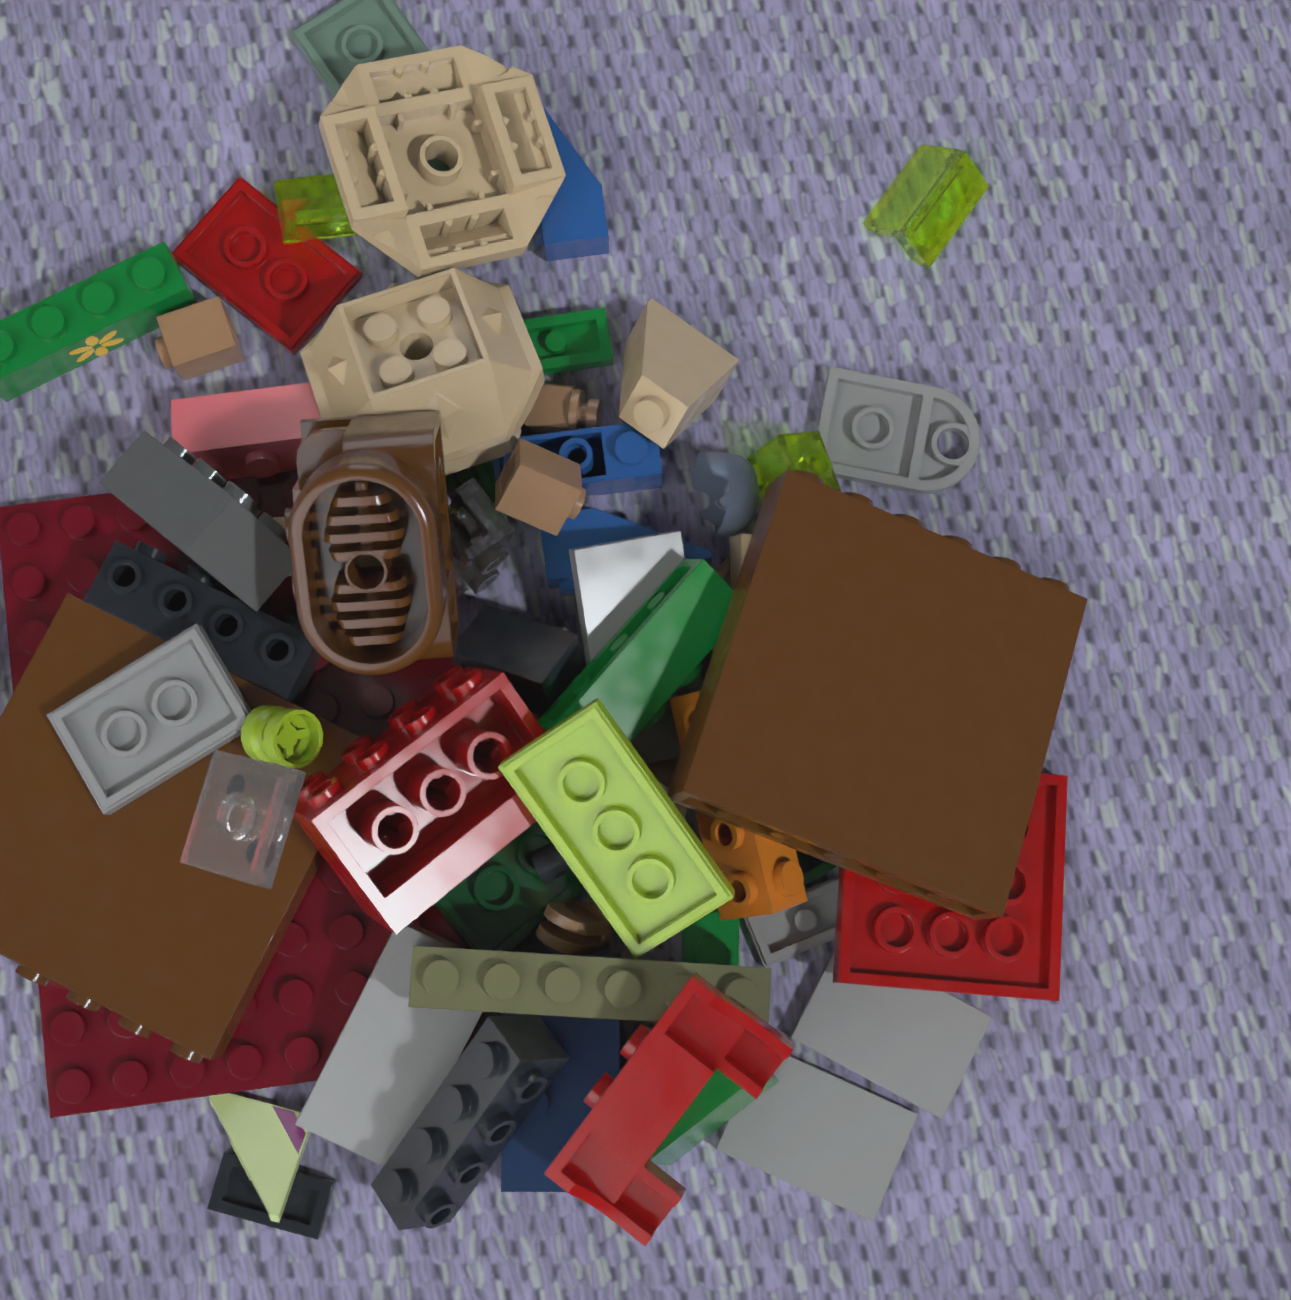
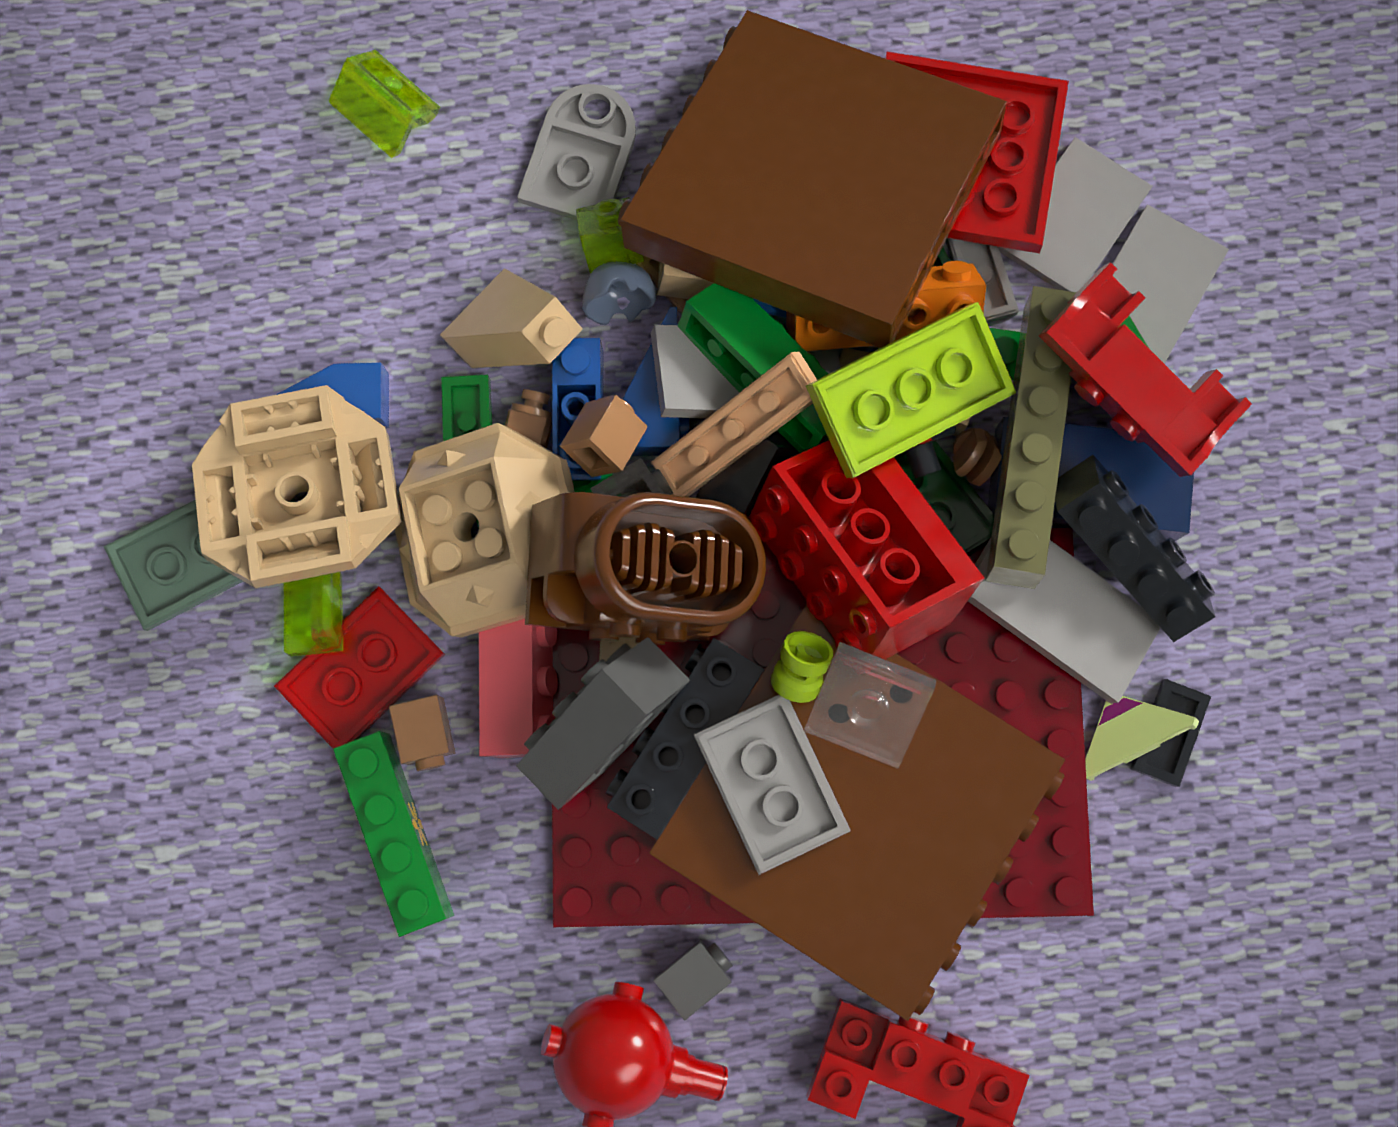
camera: 75 degrees left, 0 degrees up
(562, 634) = (737, 426): none -> light nougat tile

